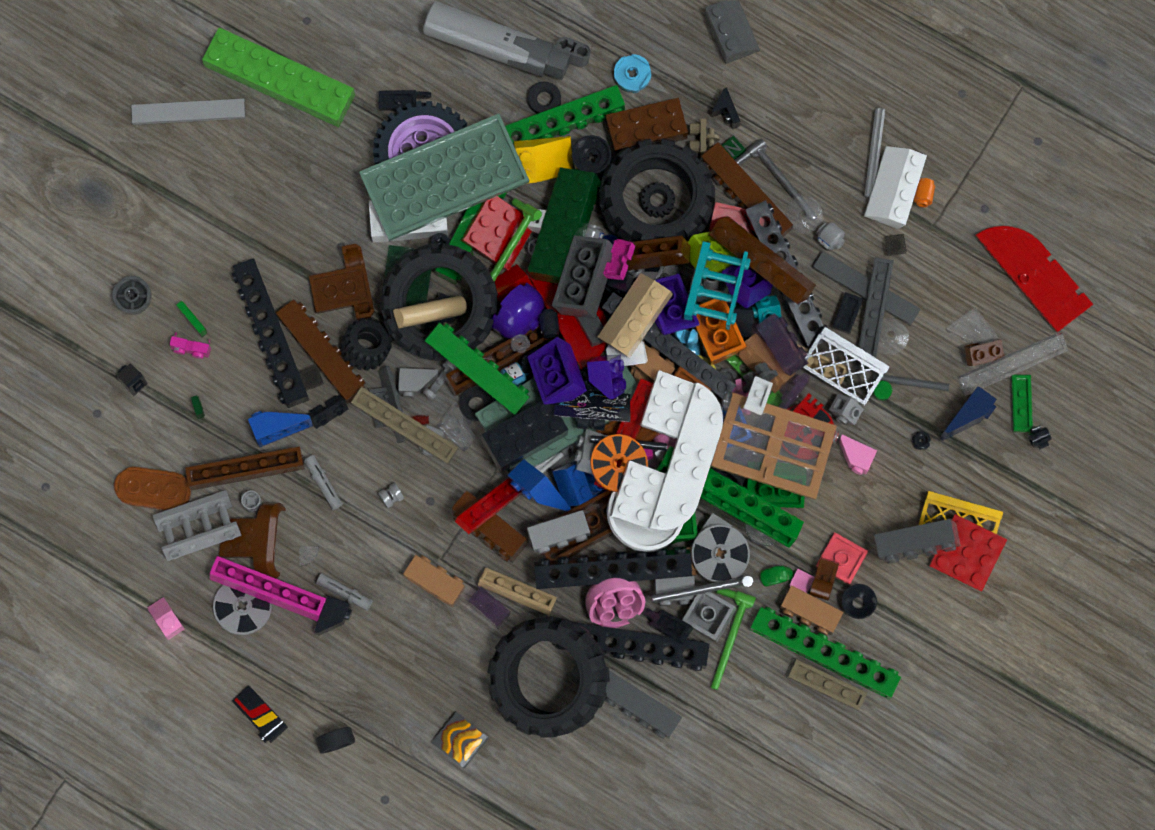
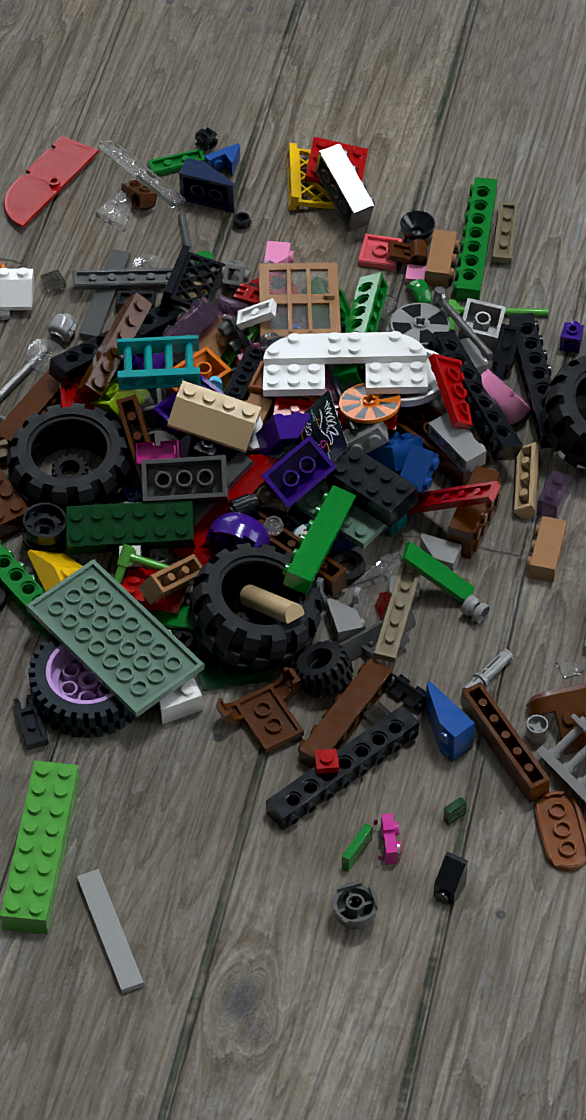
camera: 105 degrees left, 25 degrees down
(271, 315) = (326, 761): none -> red plate
(427, 468) = (436, 572): none -> green tile
(457, 484) = (442, 550): none -> light grey slope
(484, 237) = (170, 579): none -> medium nougat brick
(612, 539) = (449, 382): none -> red wing
(668, 691) = (571, 332): none -> dark purple brick
(1008, 452) = (225, 157): none -> blue slope

